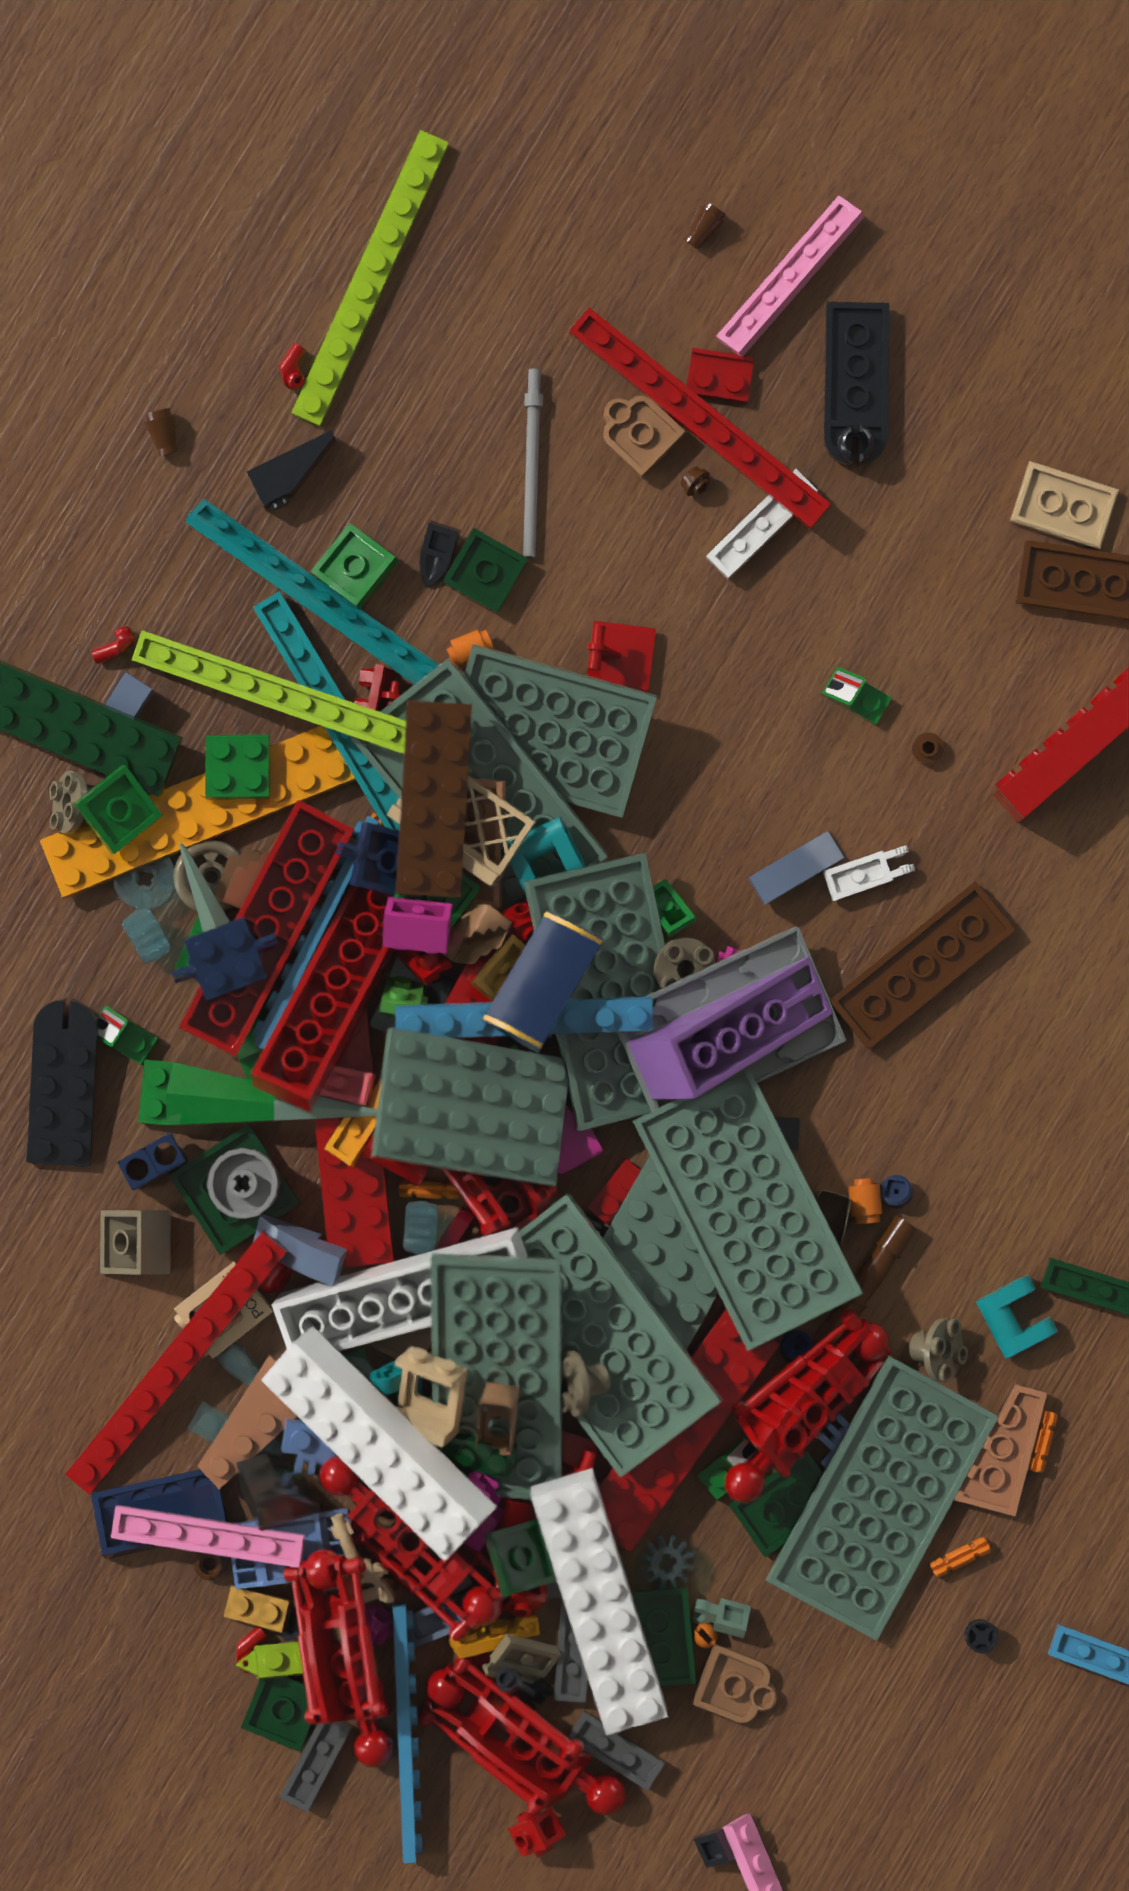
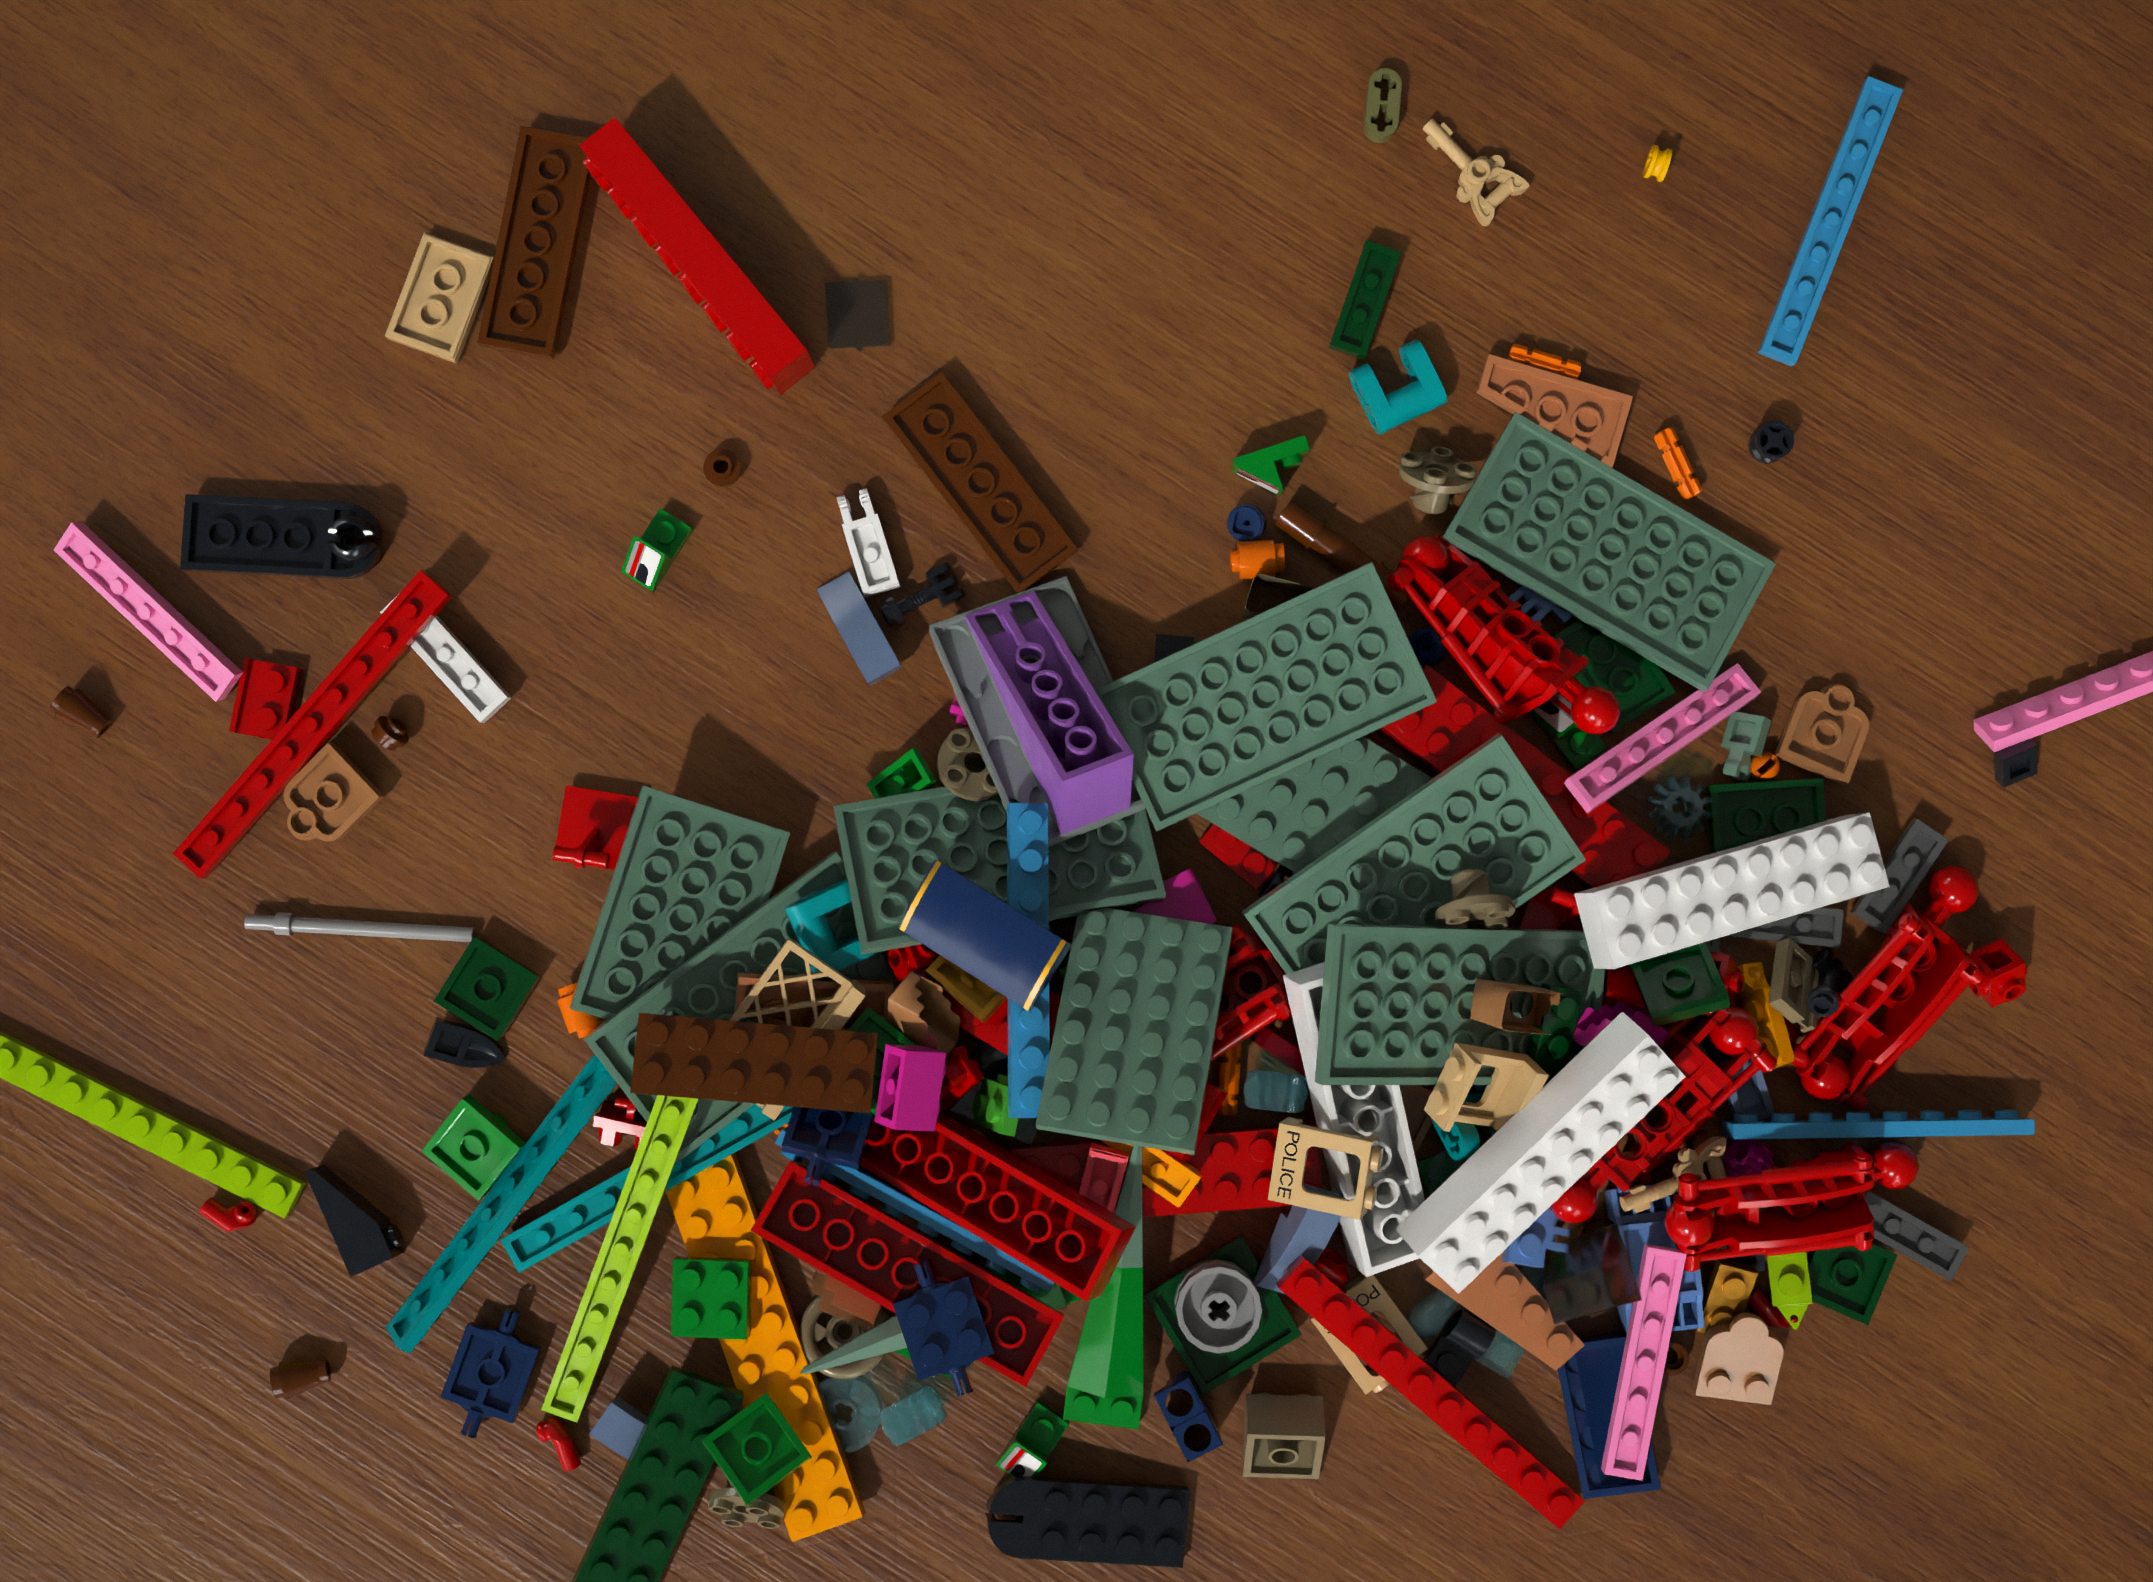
camera: 80 degrees left, 0 degrees up
(170, 587) = (491, 1372): none -> dark blue plate
(207, 1620) = (1739, 1361): none -> plate
(214, 1387) = (1458, 1343): none -> black plate
(360, 1237) = (1290, 1166): none -> tan window
(725, 1544) = (1661, 738): none -> bright pink plate
(831, 932) = (894, 611): none -> black hinge
(943, 1202) = (1261, 465): none -> green slope
(1063, 857) = (857, 314): none -> clear smoke piece

